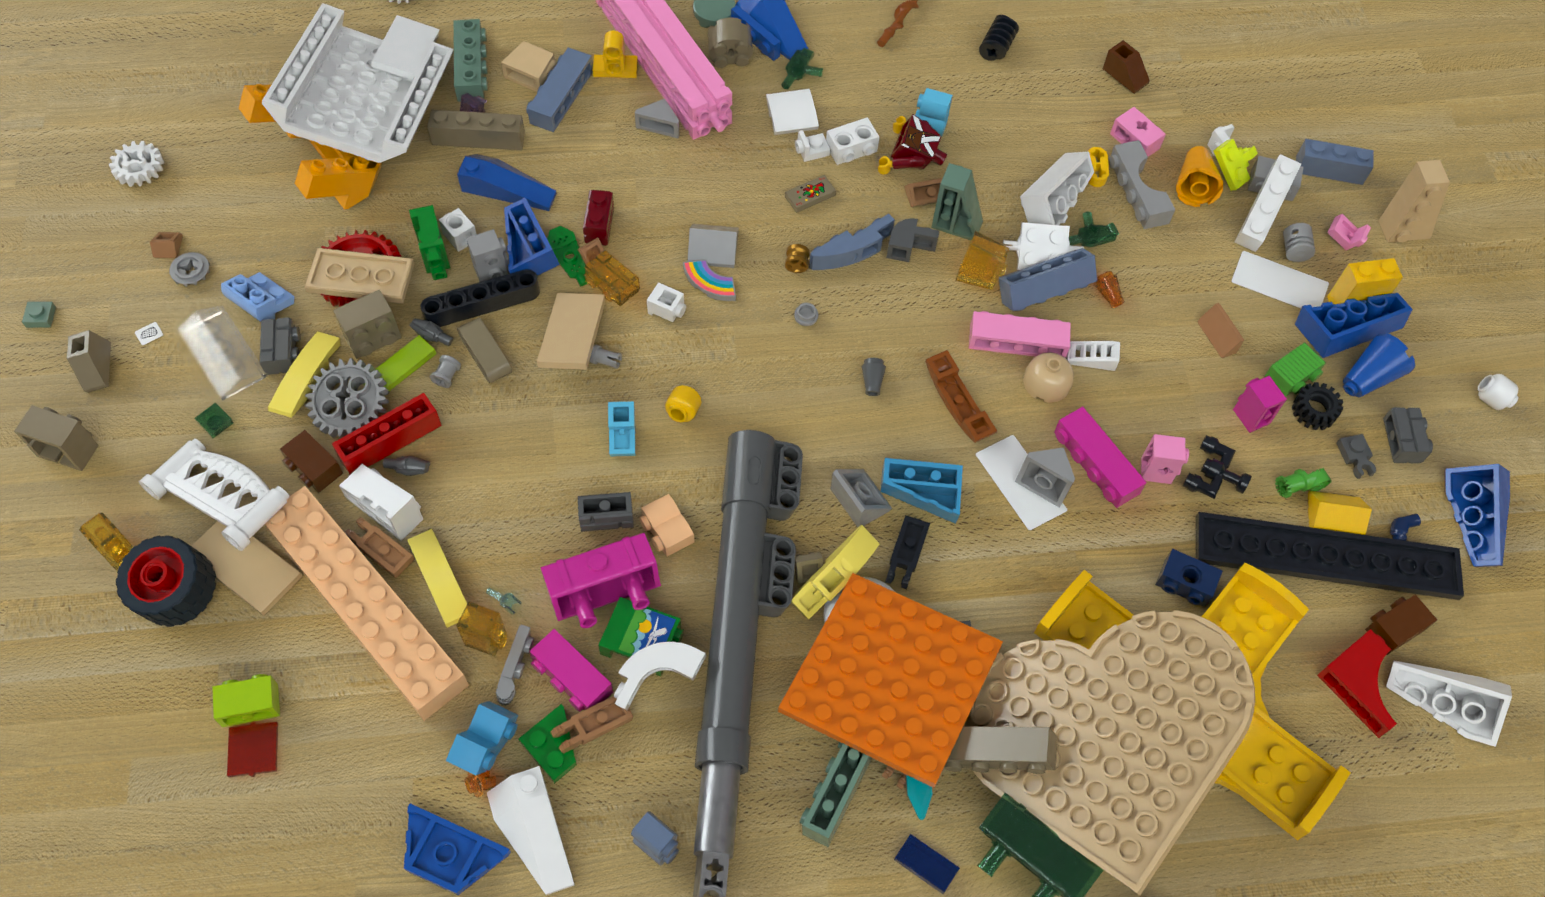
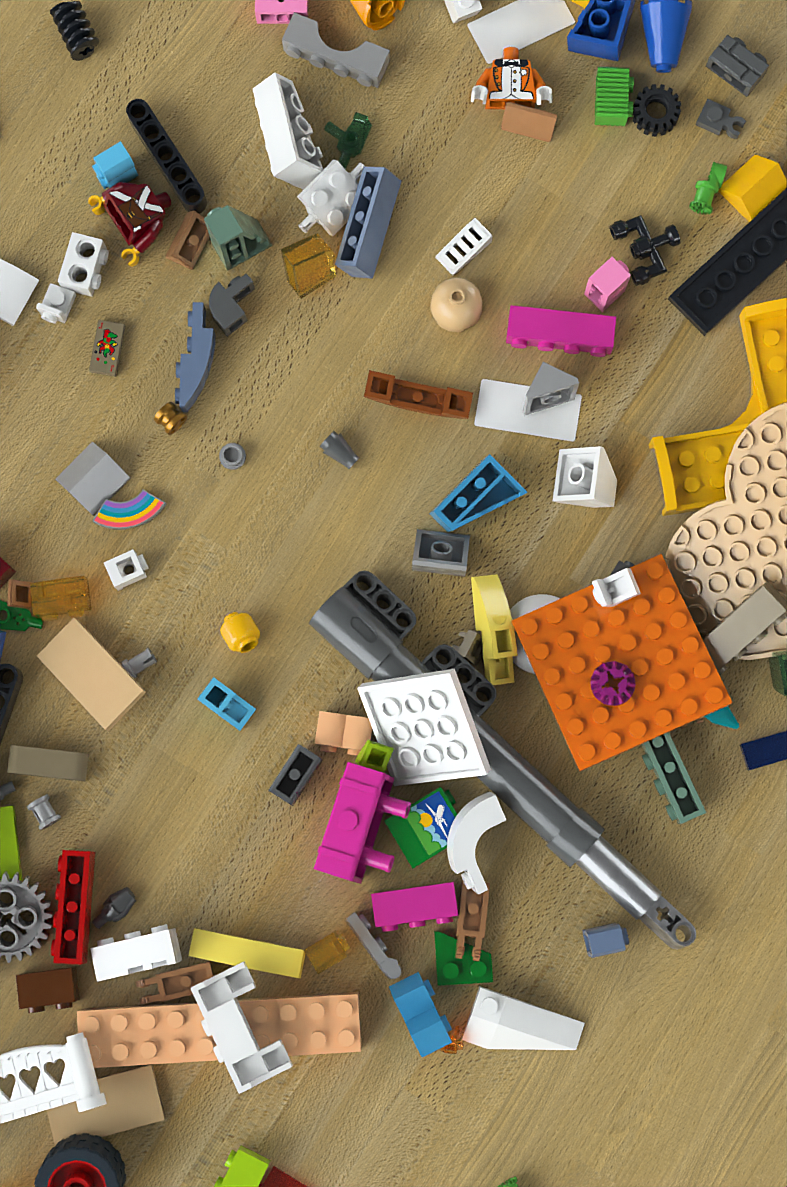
camera: 45 degrees left, 20 degrees up
(362, 595) = (231, 1031): none -> white bracket
(447, 852) = (488, 1102): blue wing -> none
(506, 600) = (309, 913): clear light blue hand -> none
(666, 553) = (374, 756): none -> lime slope
(715, 565) = (426, 726): none -> white plate
(873, 687) = (608, 695): none -> magenta gear
(907, 549) = (517, 554): black hinge -> none
(944, 621) = (615, 588): none -> white bracket
(973, 130) = (158, 147): none -> black beam
(1009, 554) = (585, 478): none -> white slope
(1018, 334) = (399, 293): bright pink brick -> none
(1101, 167) = (287, 64): yellow beam -> none
(1109, 287) = (416, 176): clear orange cone -> none
(1203, 578) = (724, 344): dark blue brick -> none
(1234, 295) = (510, 81): none -> torso
(1259, 403) = (621, 159): dark pink brick -> none

